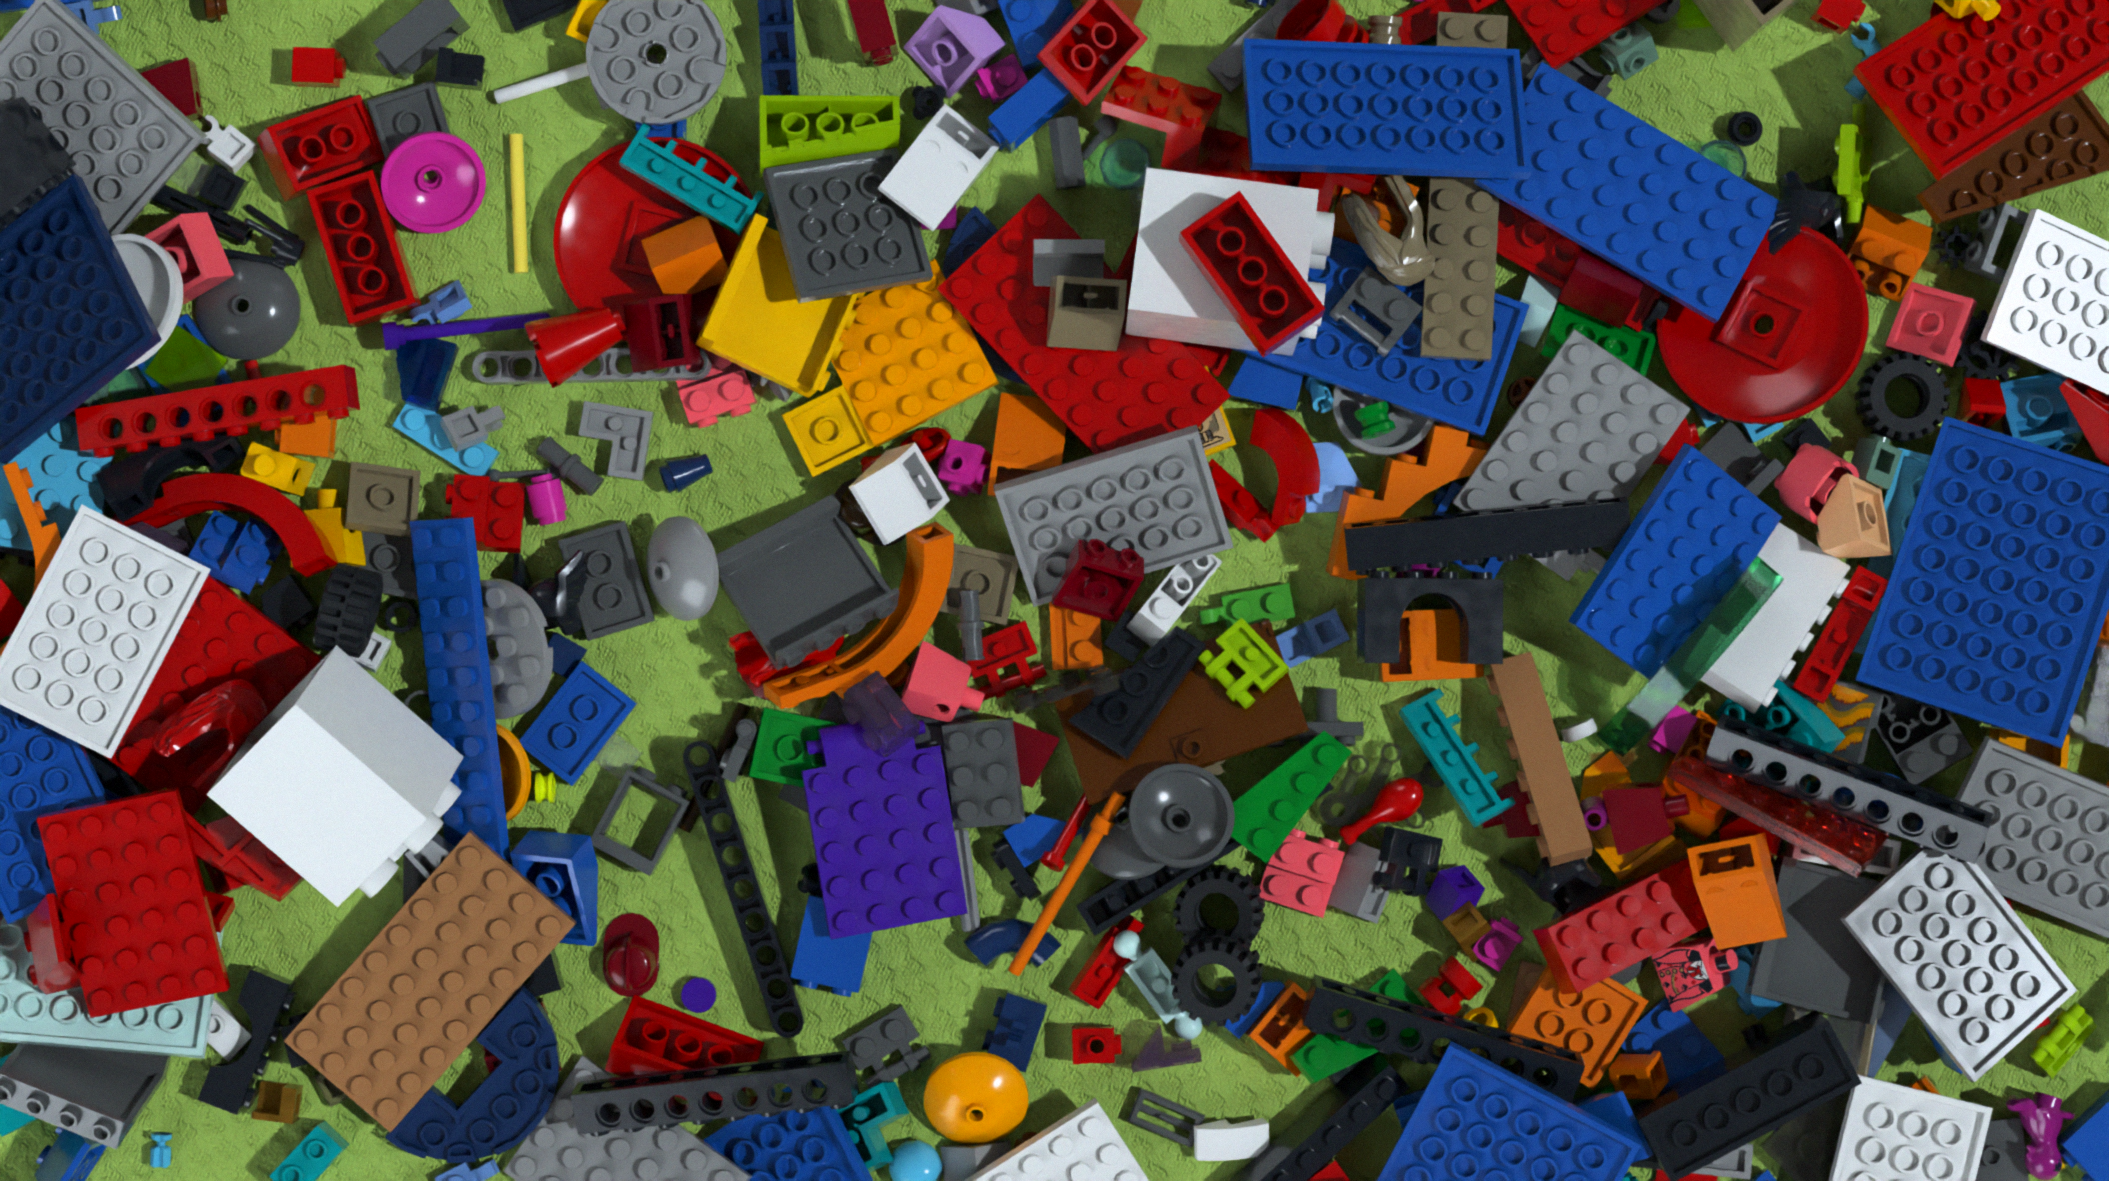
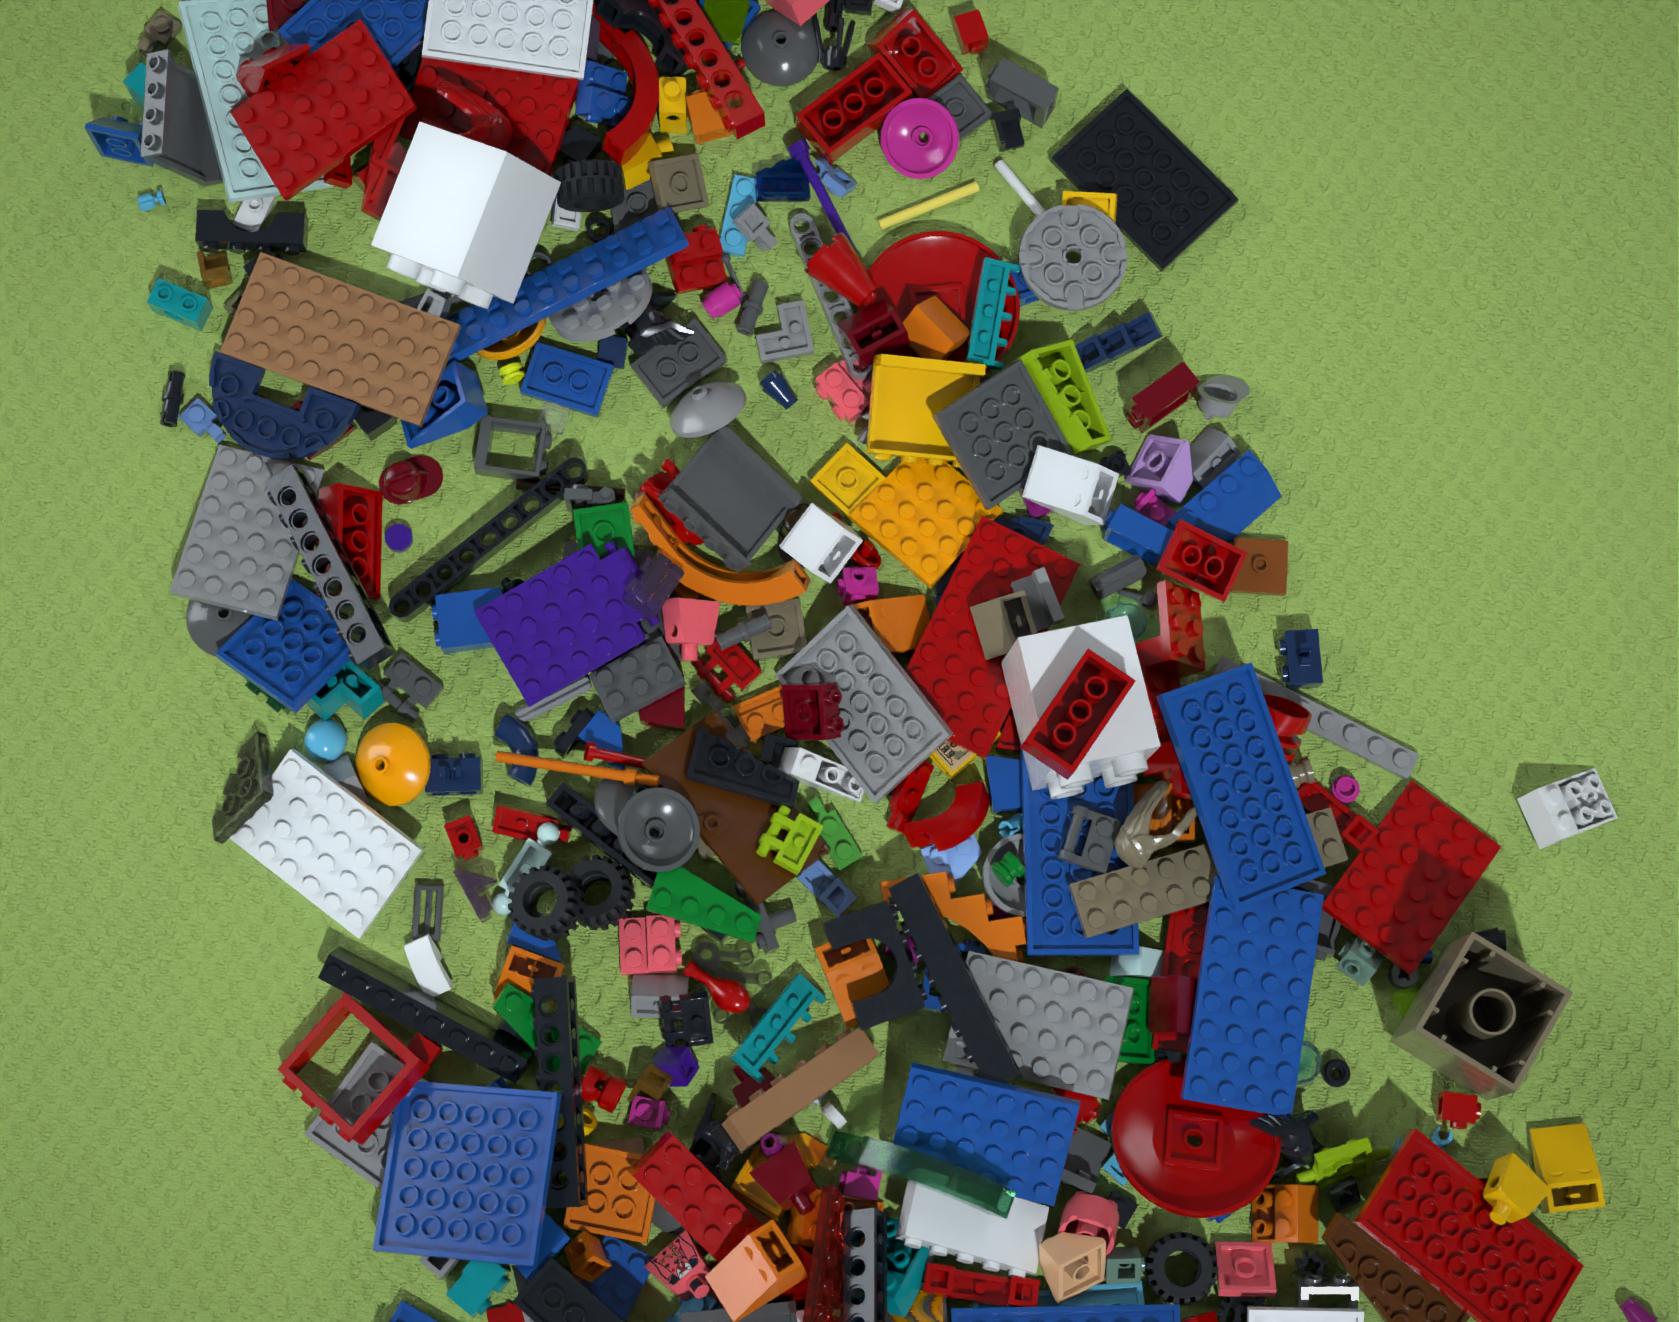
camera: 65 degrees right, 10 degrees down
(1885, 175) = (1344, 1193): none -> black plate

